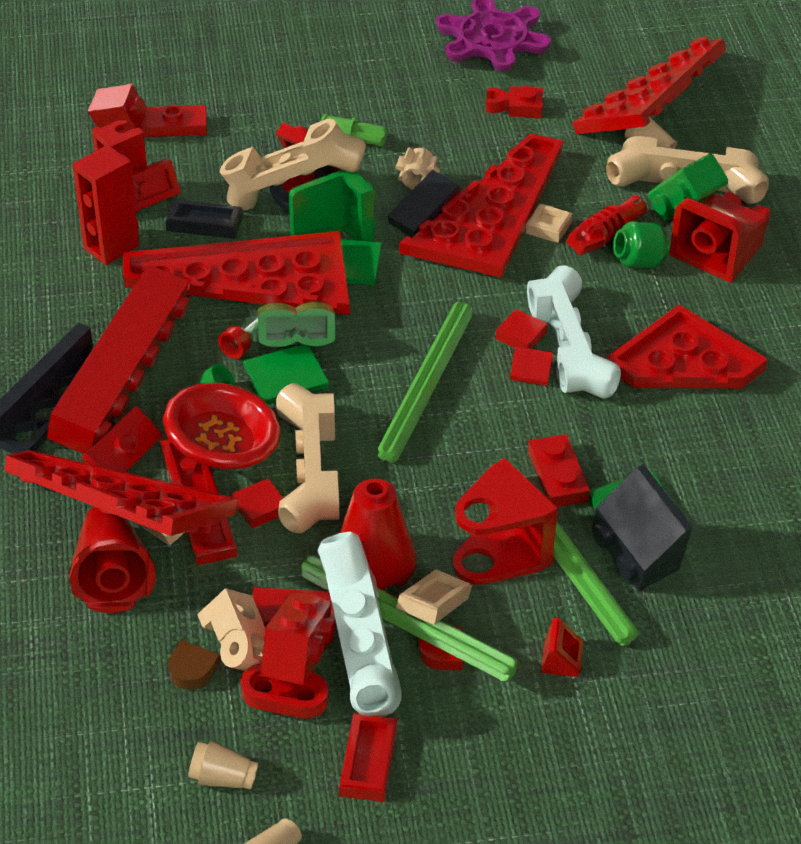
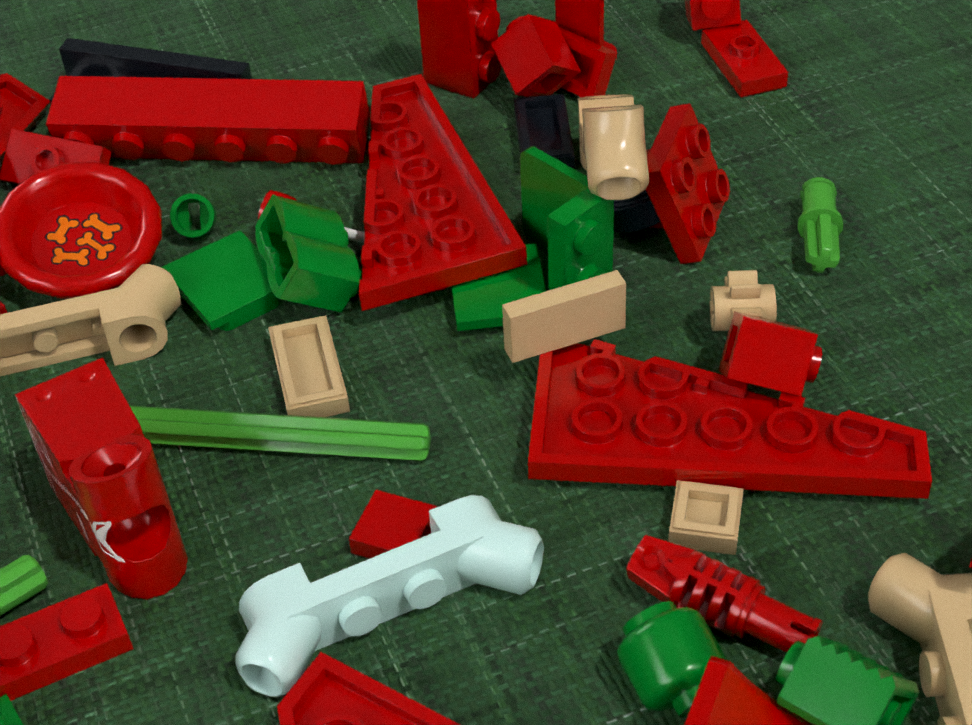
camera: 80 degrees right, 0 degrees up
(154, 192) = (535, 56): none -> red brick
(381, 350) = (309, 368): none -> tan tile
(414, 222) = (564, 316): none -> tan tile
(423, 203) = (672, 335): black tile -> none
(464, 163) = (770, 354): none -> red brick
(472, 411) = (106, 478): none -> red piece
(531, 366) = (312, 544): red slope -> none

